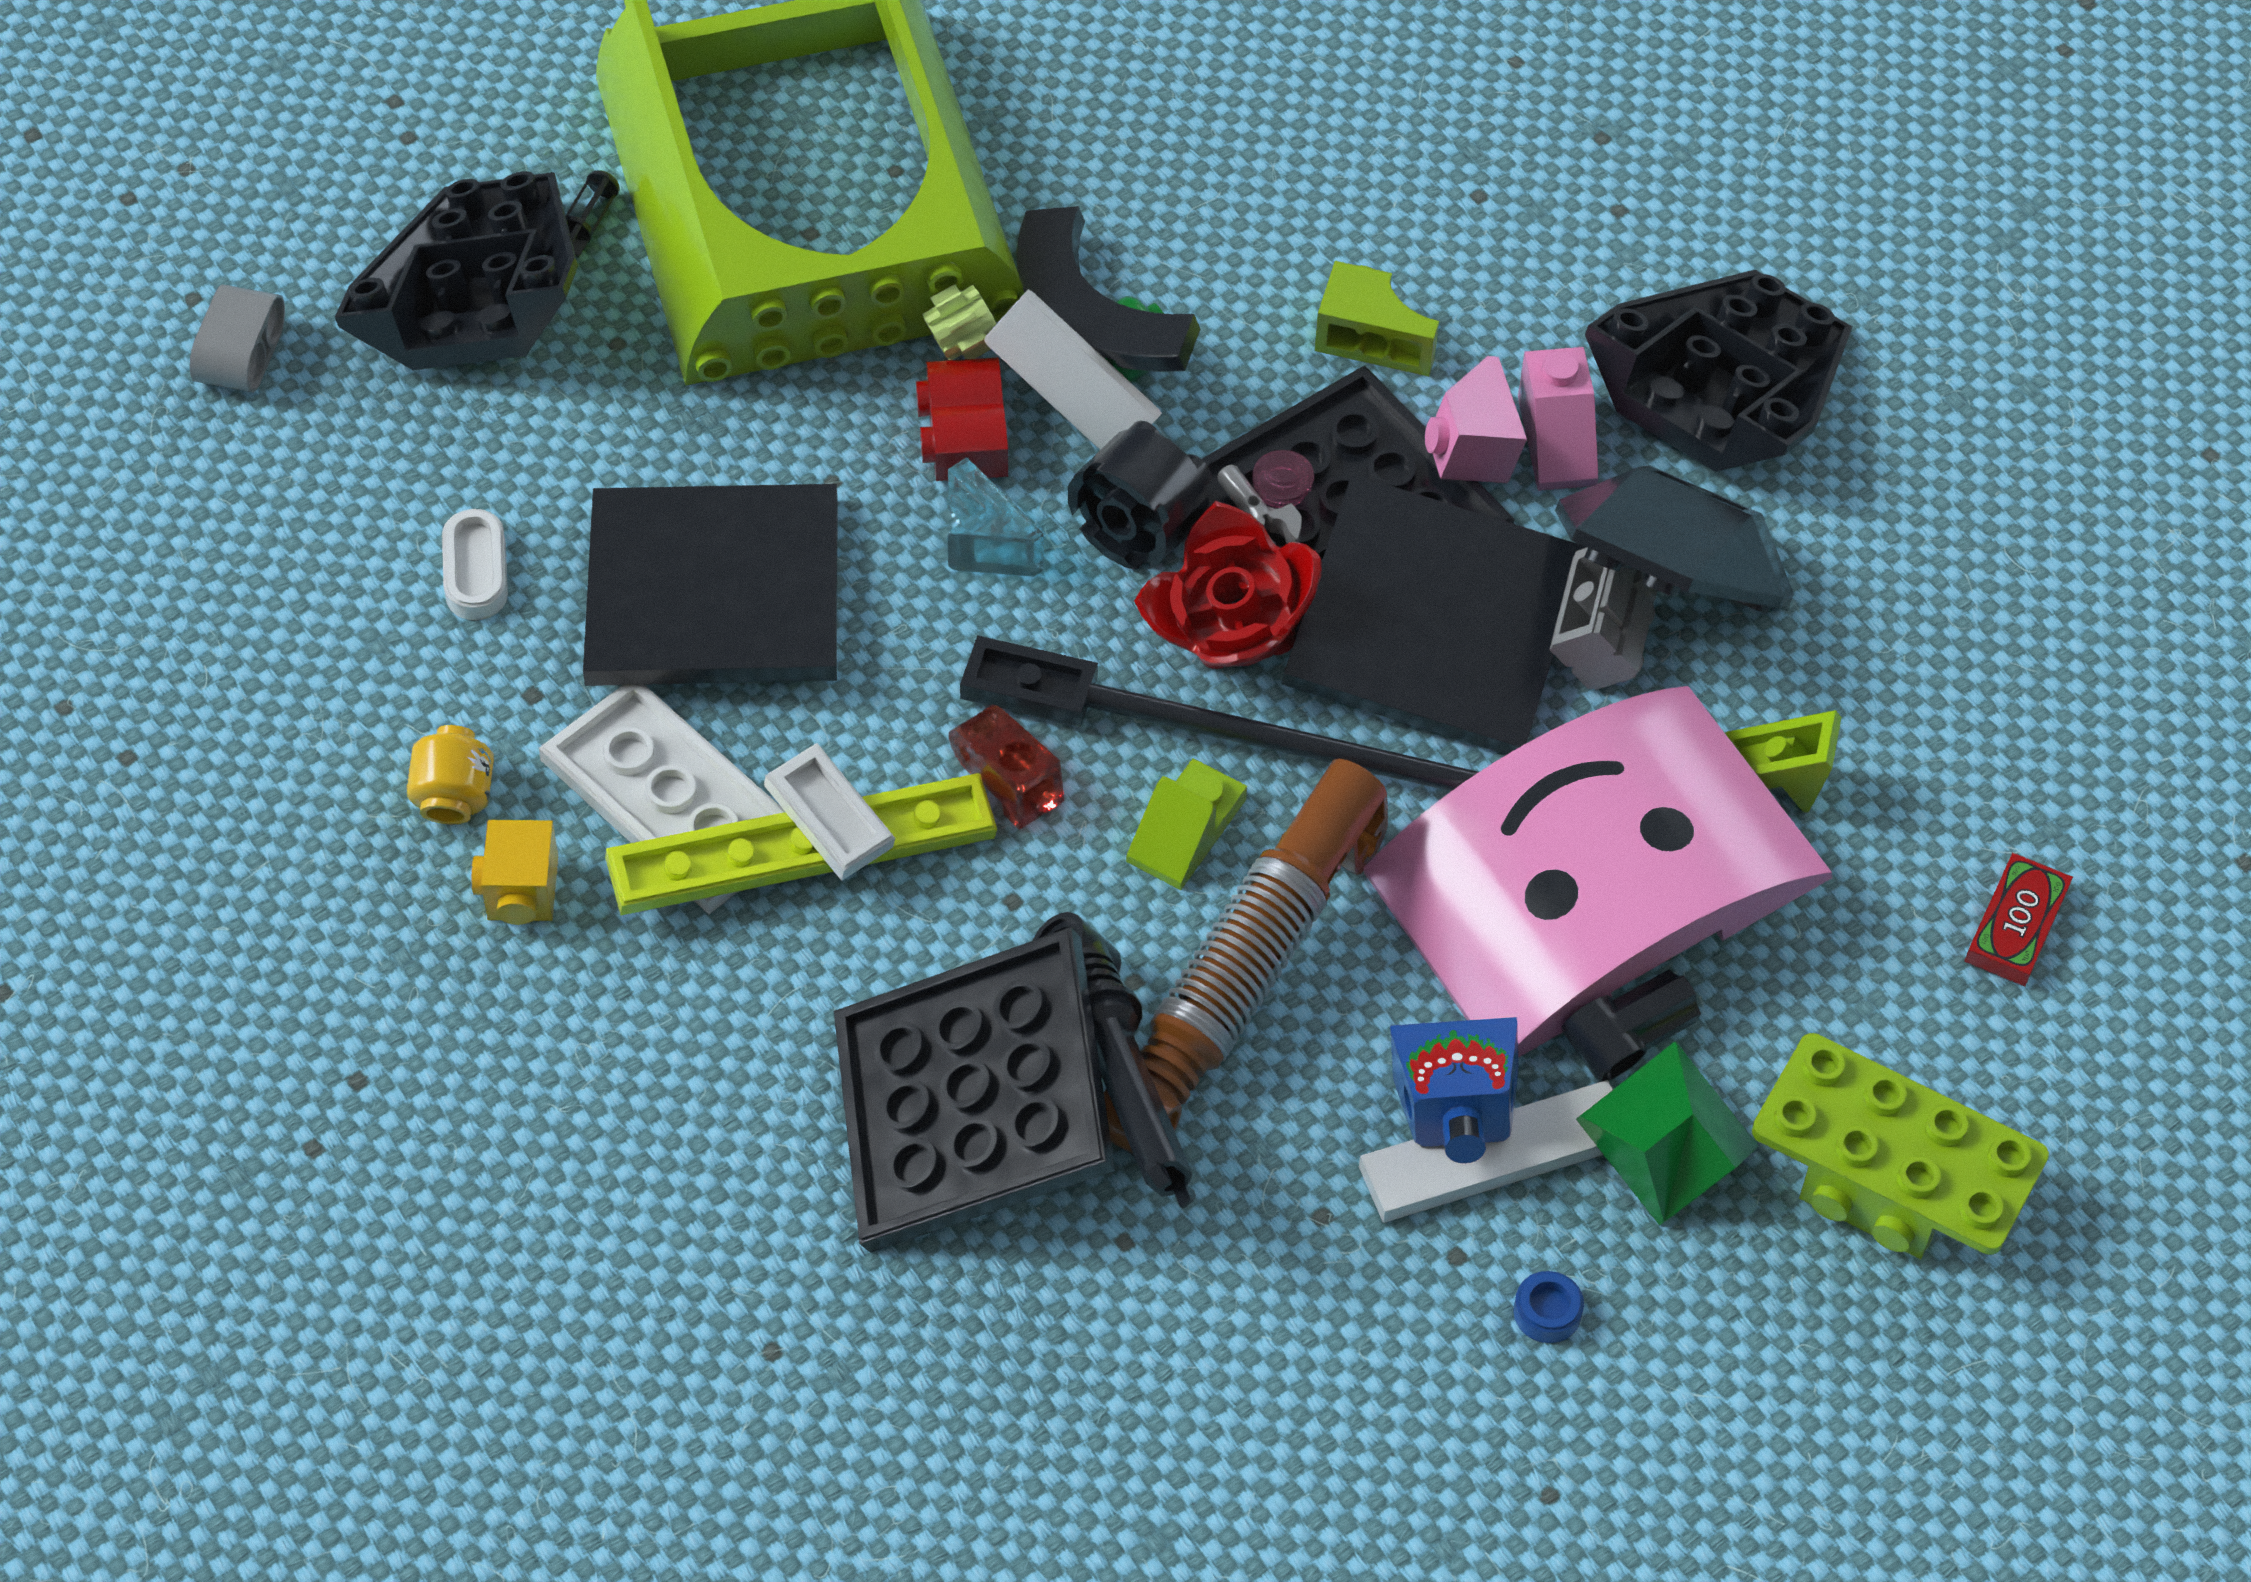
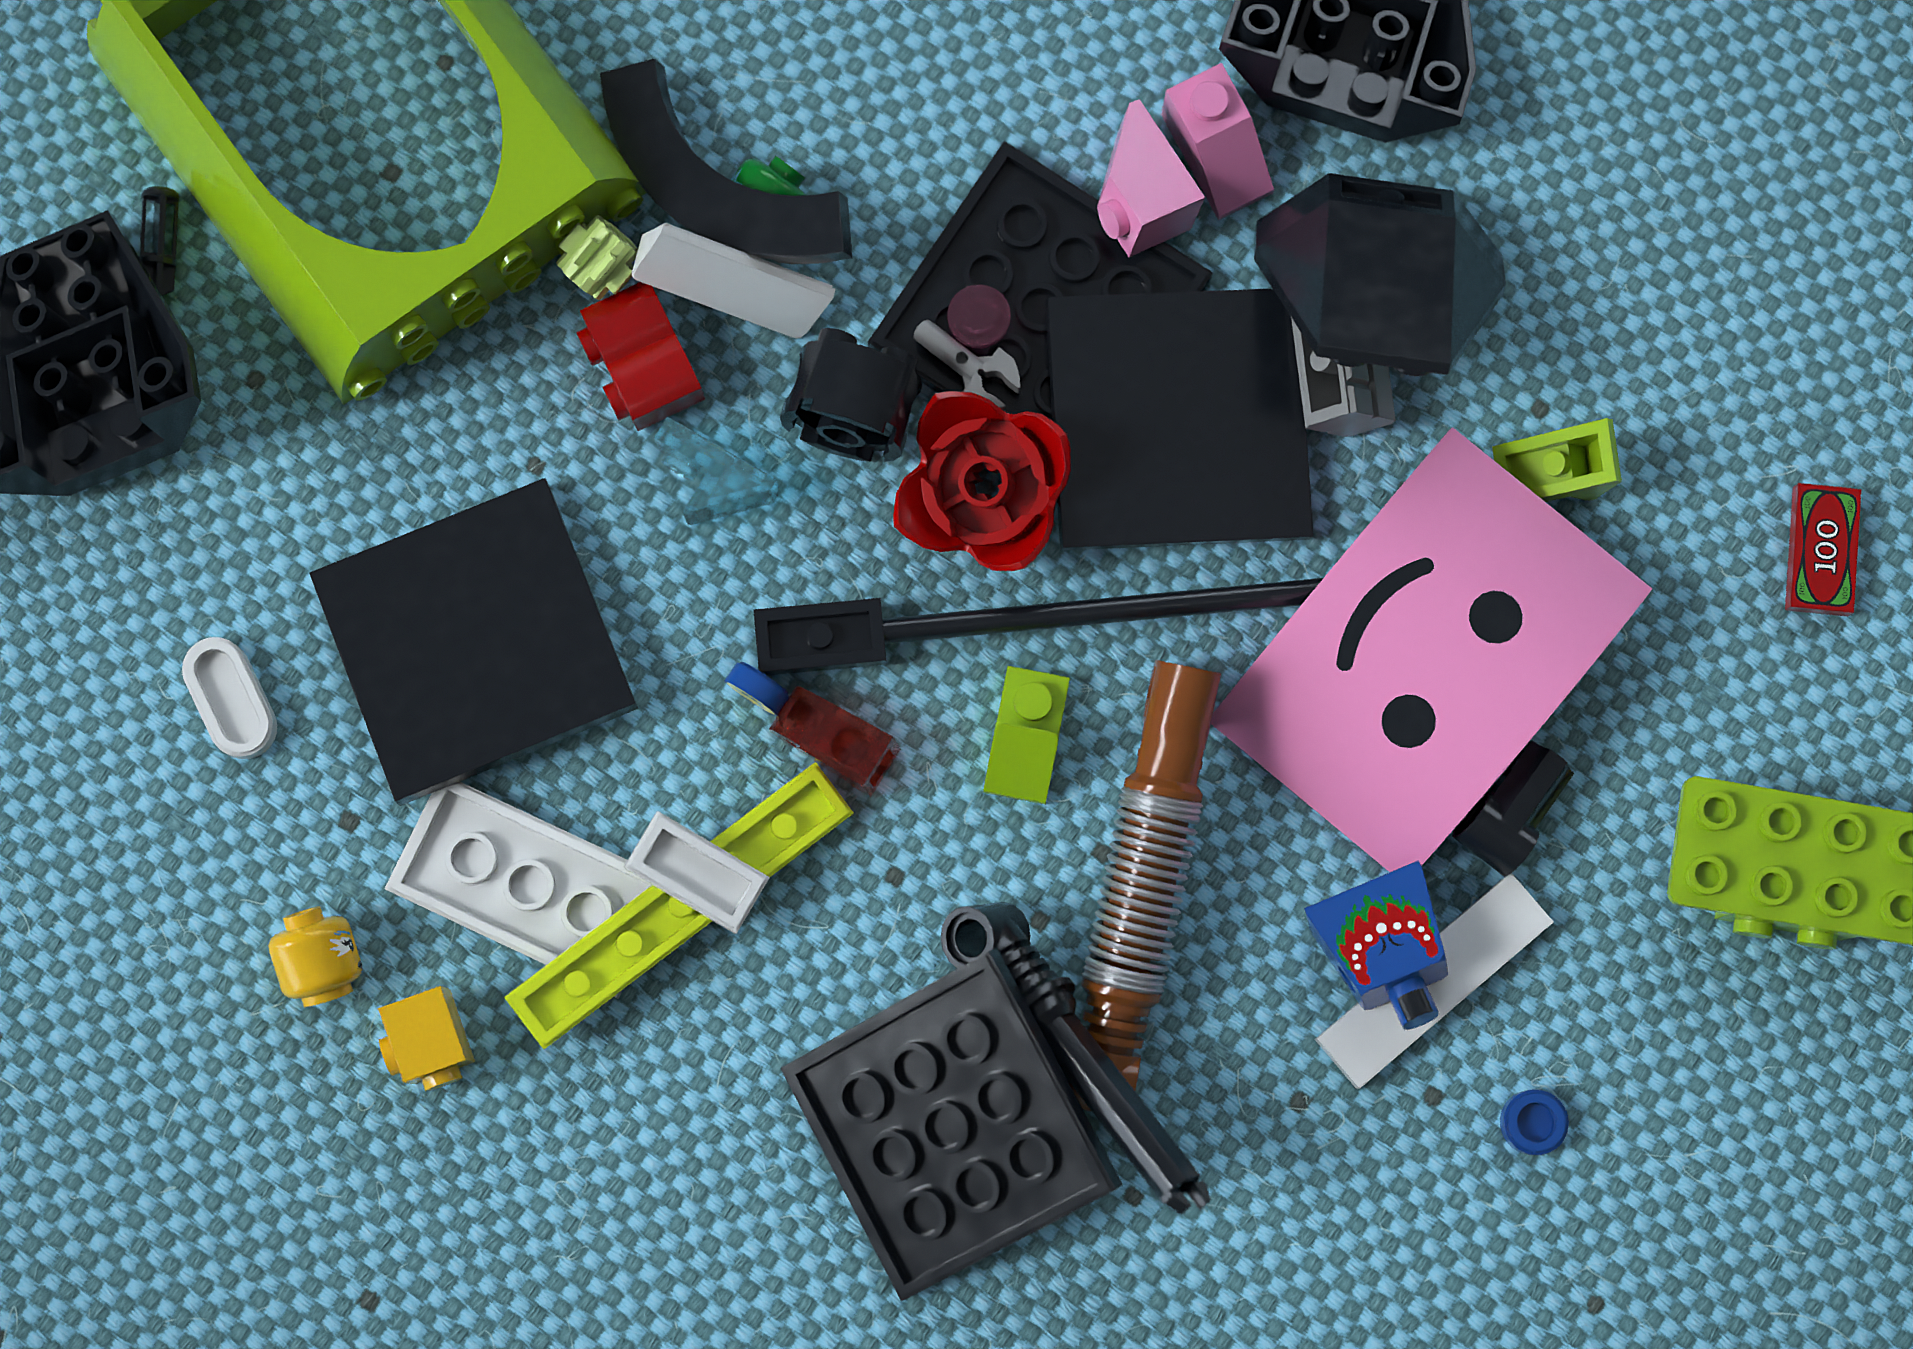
camera: 20 degrees left, 25 degrees up
(951, 697) = (757, 688): none -> blue tile
(1370, 324) = (990, 90): lime arch -> none
(1667, 1133) = (1589, 911): green slope -> none

